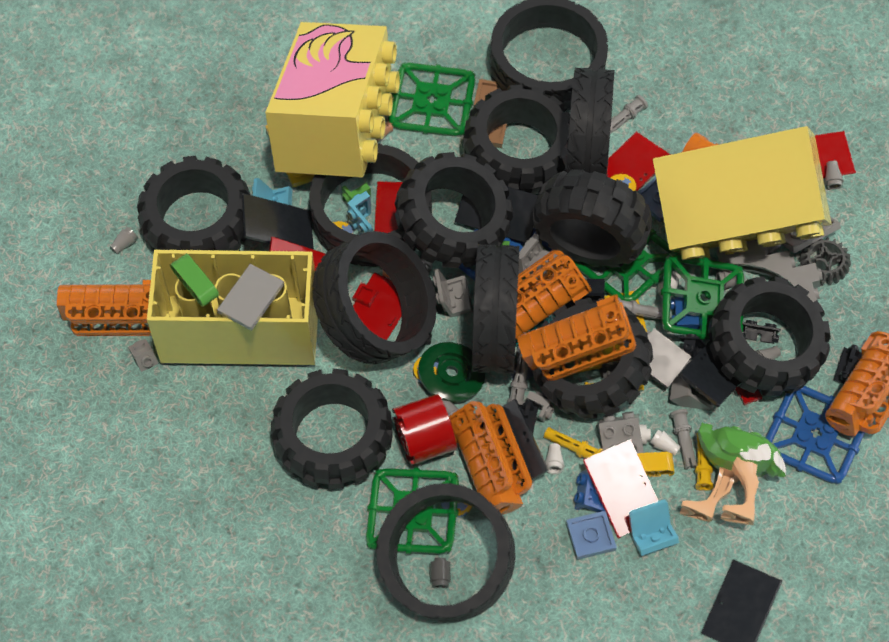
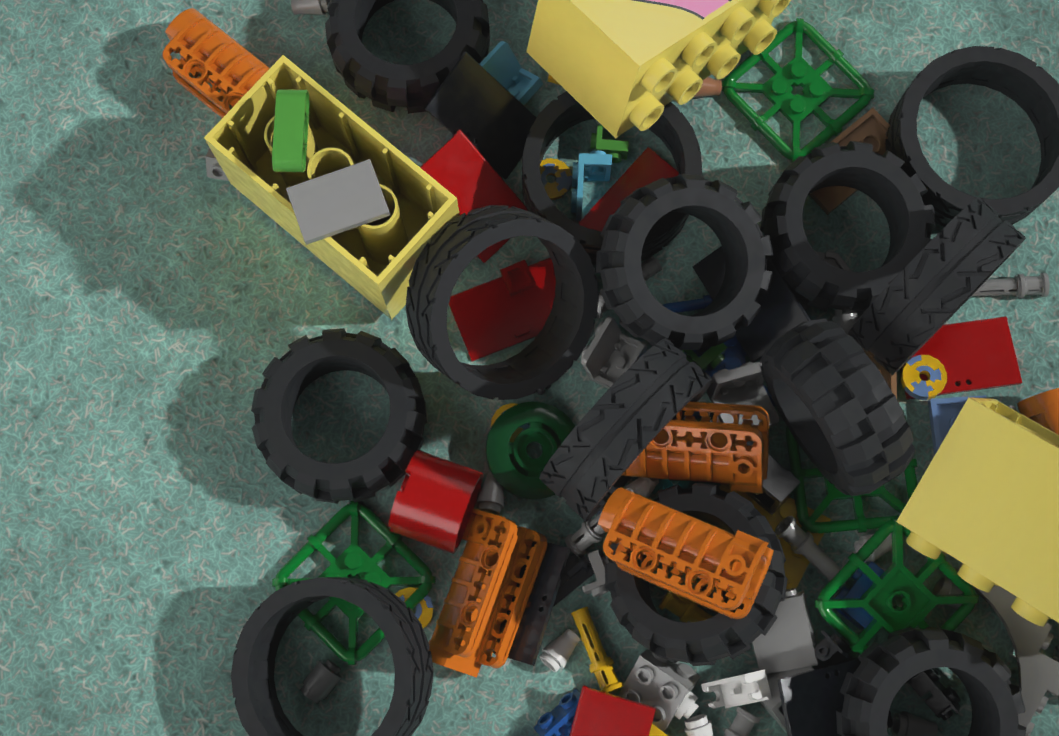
camera: 40 degrees right, 15 degrees up
(663, 402) = (739, 689): none -> white hinge

